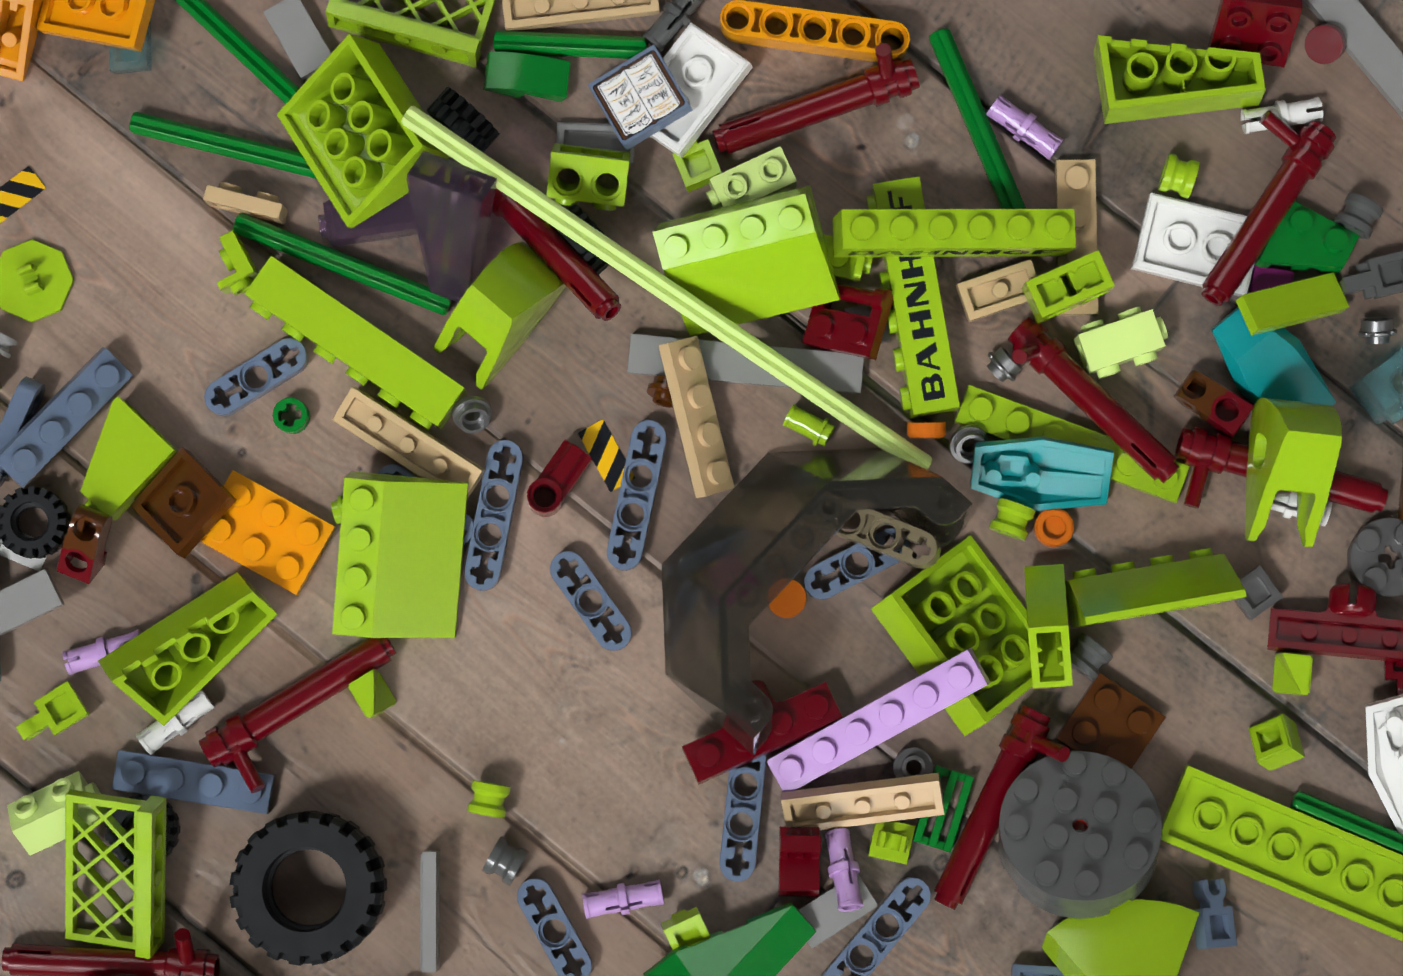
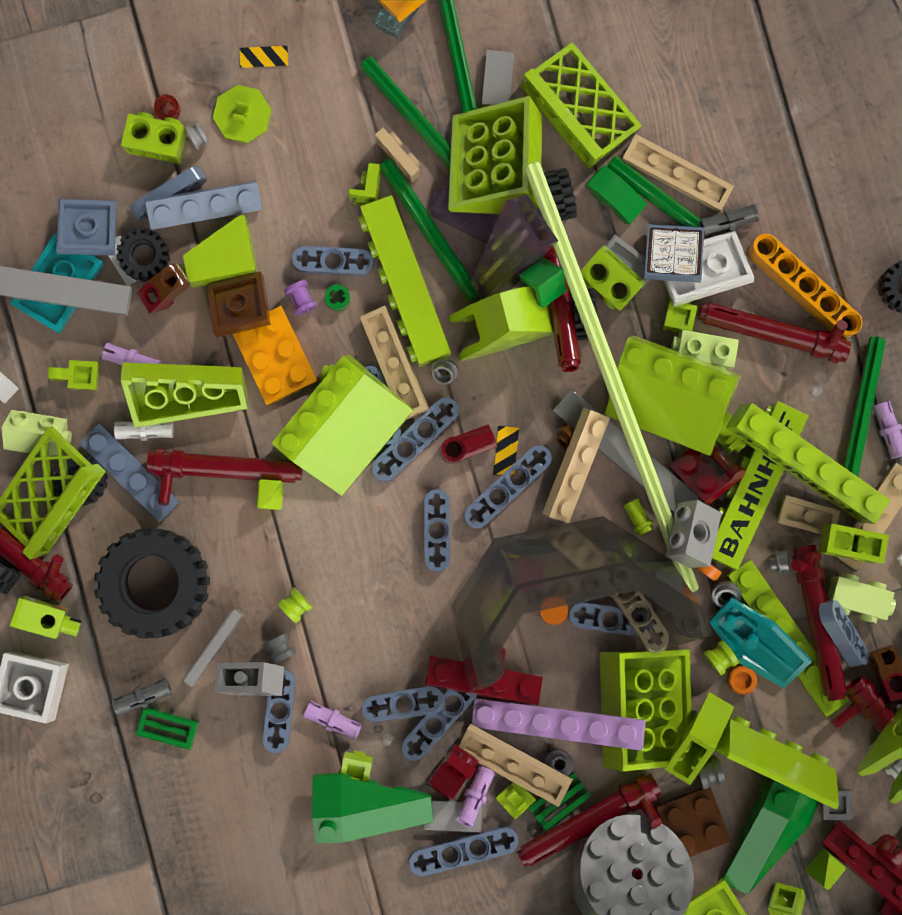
camera: 25 degrees right, 0 degrees up
(249, 445) = (300, 298): none -> medium lavender bush
(495, 917) = (249, 679): none -> light grey brick
(515, 232) = (546, 280): none -> green panel
(677, 851) = (384, 715): none -> sand blue beam
(882, 401) = (693, 534): none -> light grey brick
(1128, 395) = (843, 633): none -> sand blue beam
(1203, 669) = (770, 831): none -> green wedge

